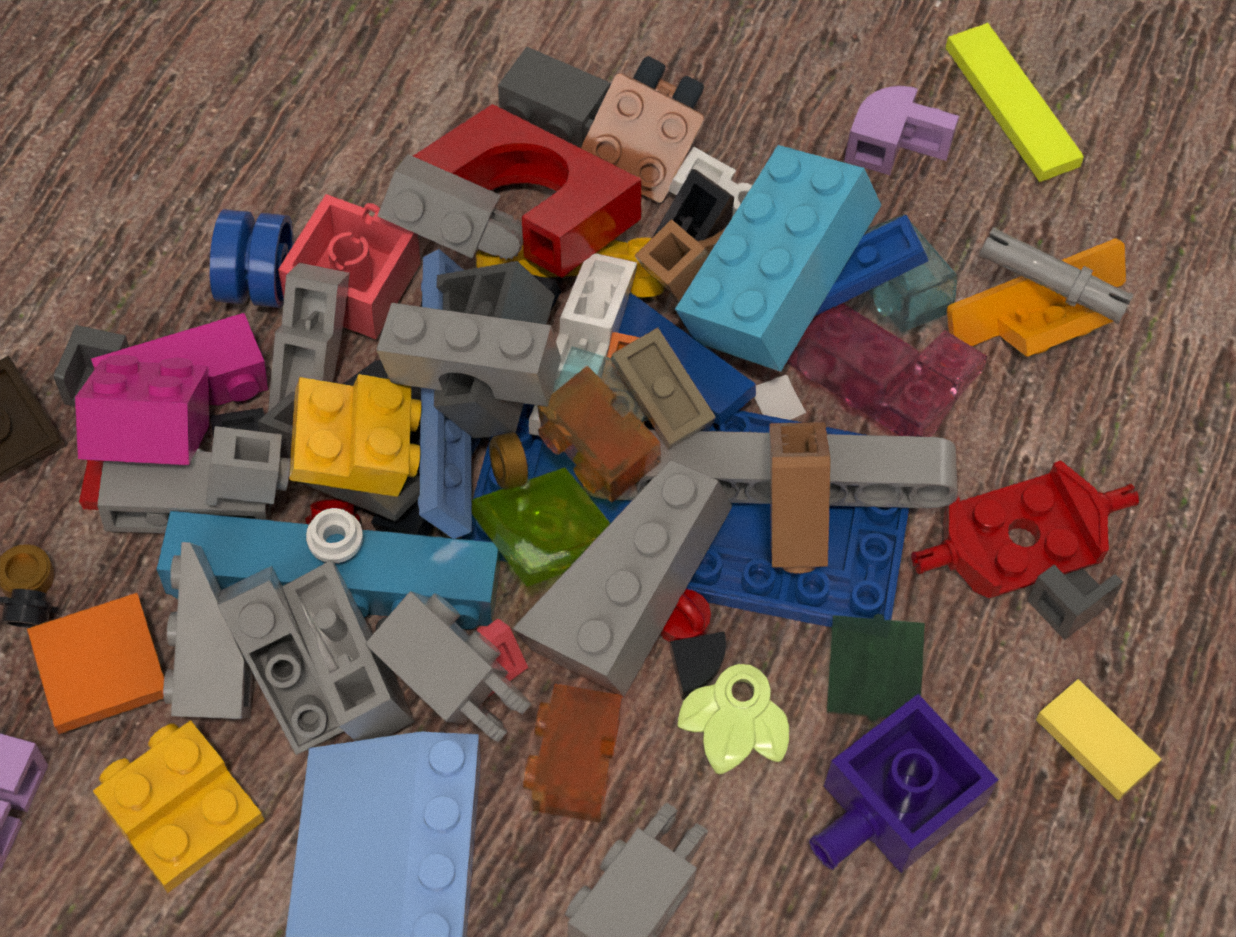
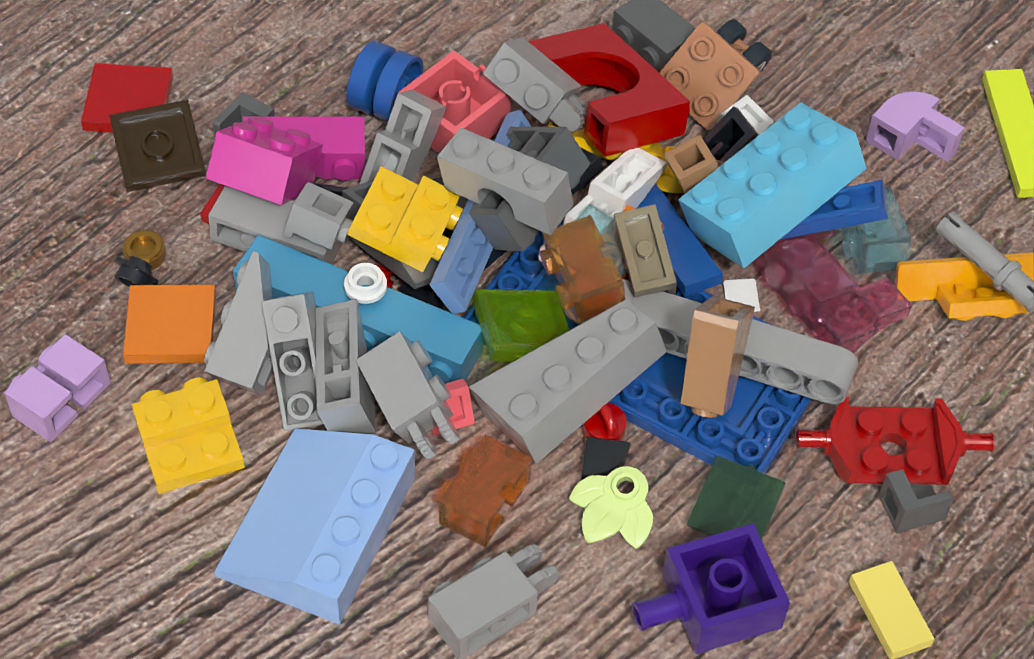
camera: 20 degrees right, 5 degrees down
(508, 461) = (511, 269): pearl gold tile -> none

